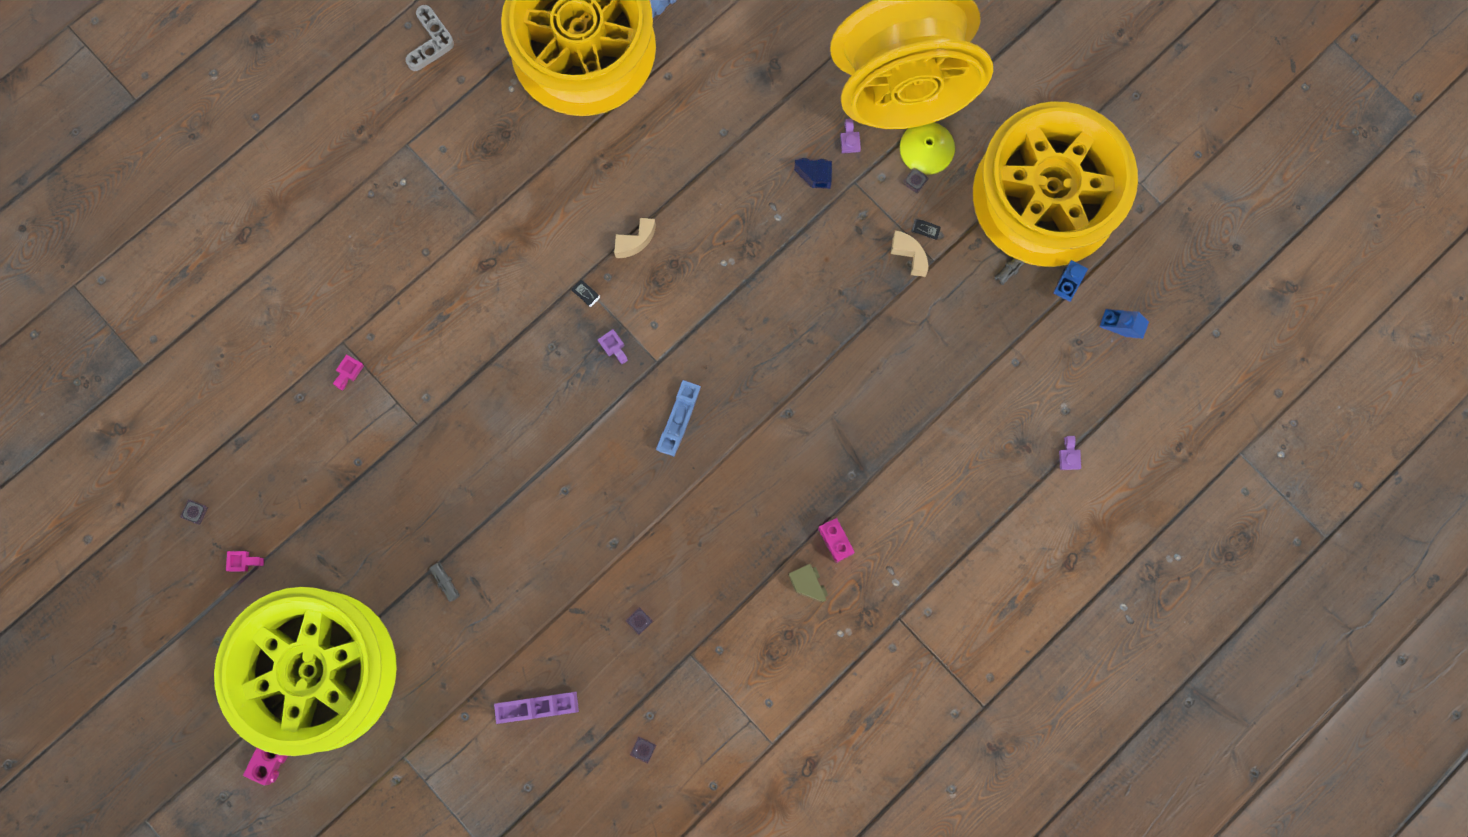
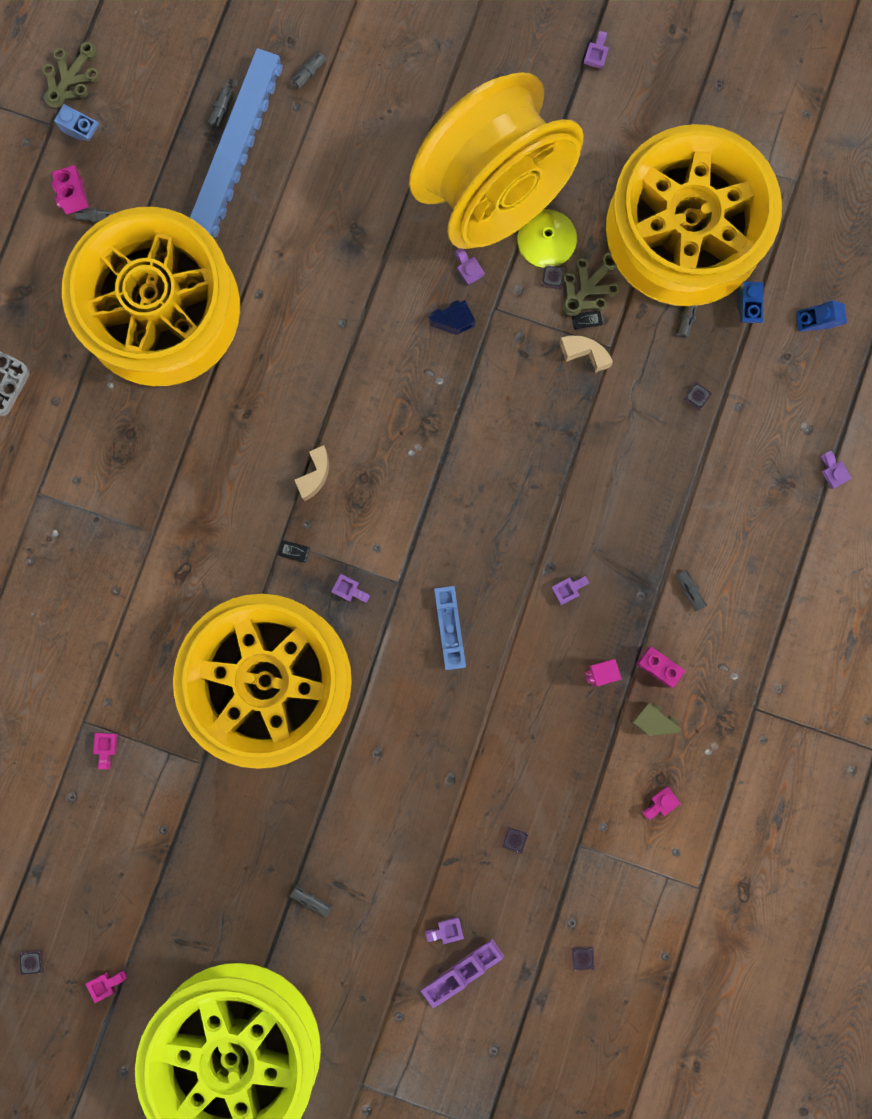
camera: 25 degrees left, 5 degrees up
(455, 338) = (218, 732): none -> yellow wheel
(543, 666) = (448, 930): none -> medium lavender plate
(780, 655) = (663, 802): none -> dark pink plate
(784, 519) = (602, 673): none -> dark pink brick
(792, 438) = (567, 589): none -> medium lavender plate
(896, 491) = (691, 590): none -> dark grey pin
(940, 203) = (588, 287): none -> olive plant
(985, 336) = (697, 396): none -> tile
(1047, 20) = (597, 52): none -> medium lavender plate

